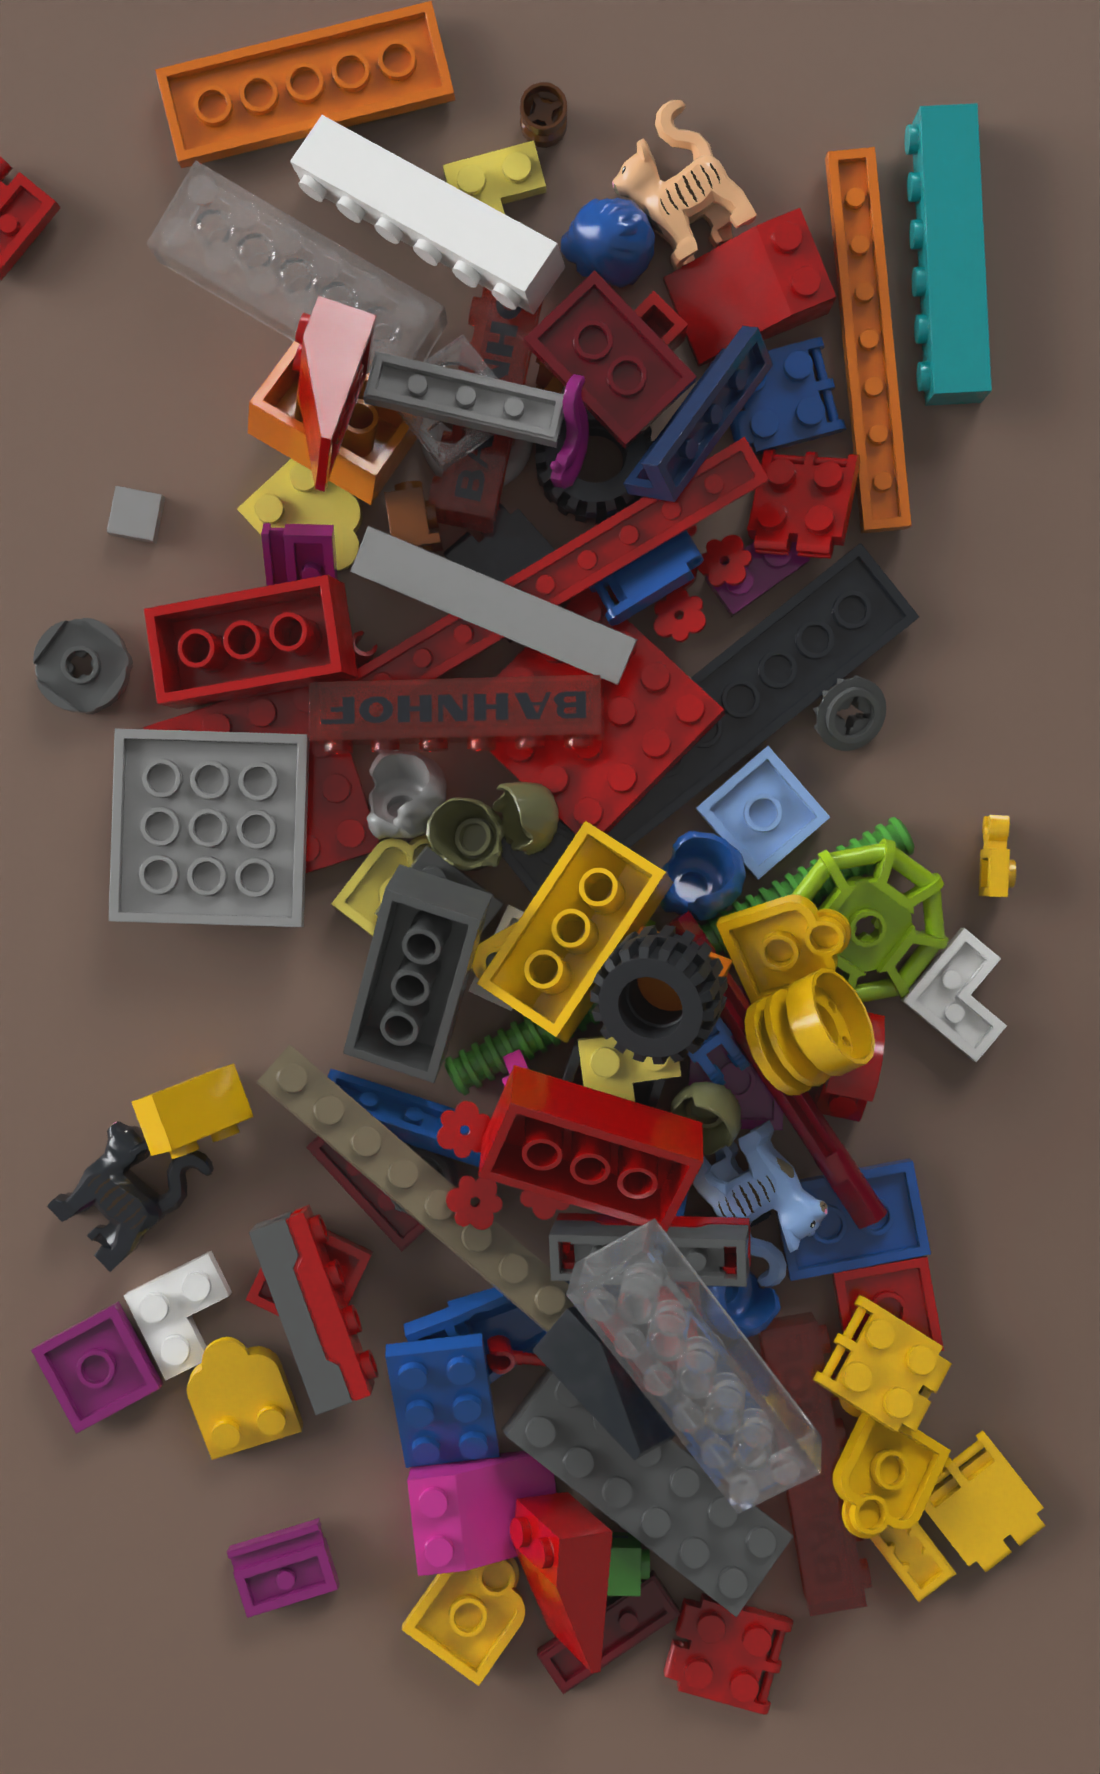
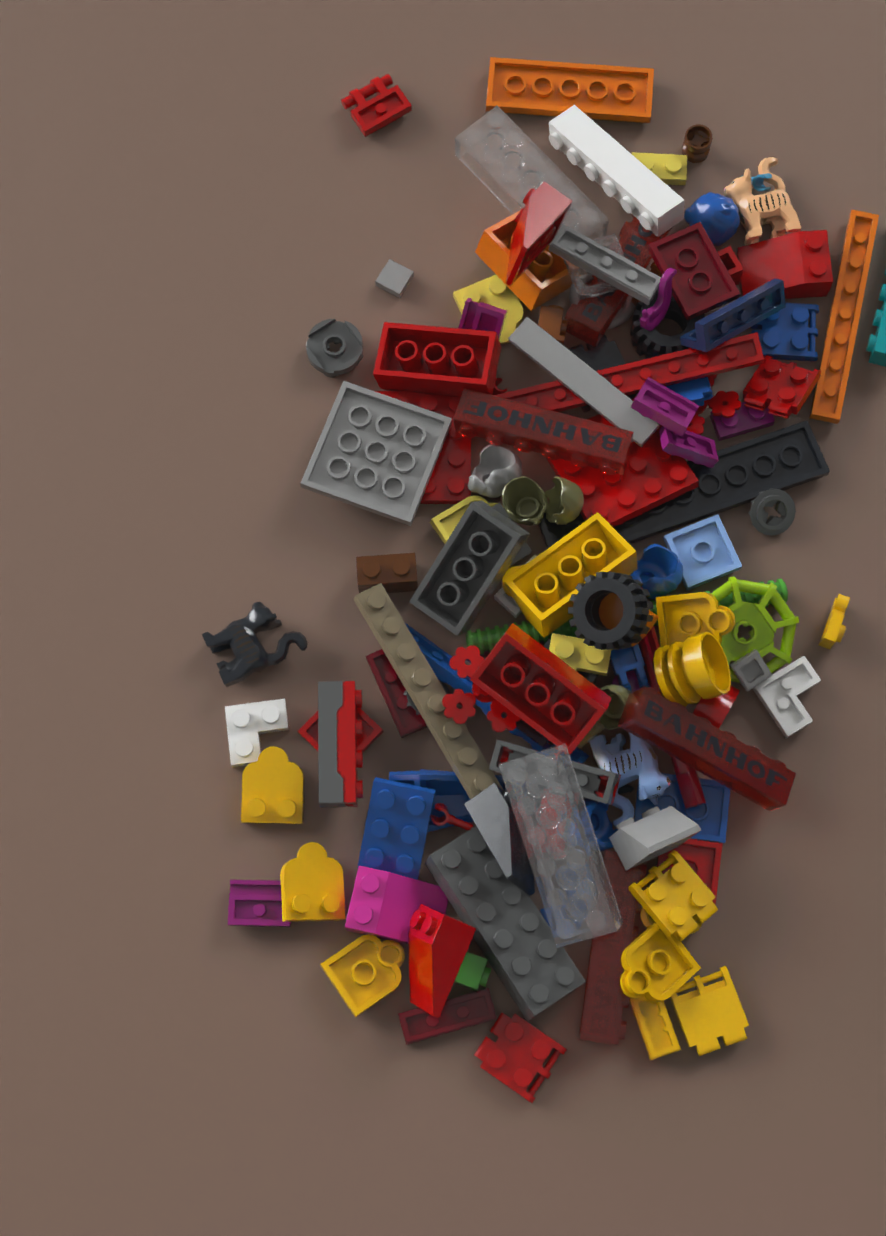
camera: 25 degrees right, 15 degrees down
(97, 1367) = (193, 743): magenta plate -> none
(192, 1110) = (308, 606): yellow brick -> none
(293, 1012) = (394, 571): none -> reddish brown brick
(350, 1522) = (312, 886): none -> yellow plate
(635, 612) = (664, 406): none -> magenta plate
(663, 153) = (758, 184): none -> dark azure hand
(690, 656) = (689, 446): none -> magenta plate
(827, 1300) = (651, 836): none -> light grey slope
(863, 1138) = (707, 748): none -> clear red brick
(893, 982) = (751, 670): none -> light grey tile

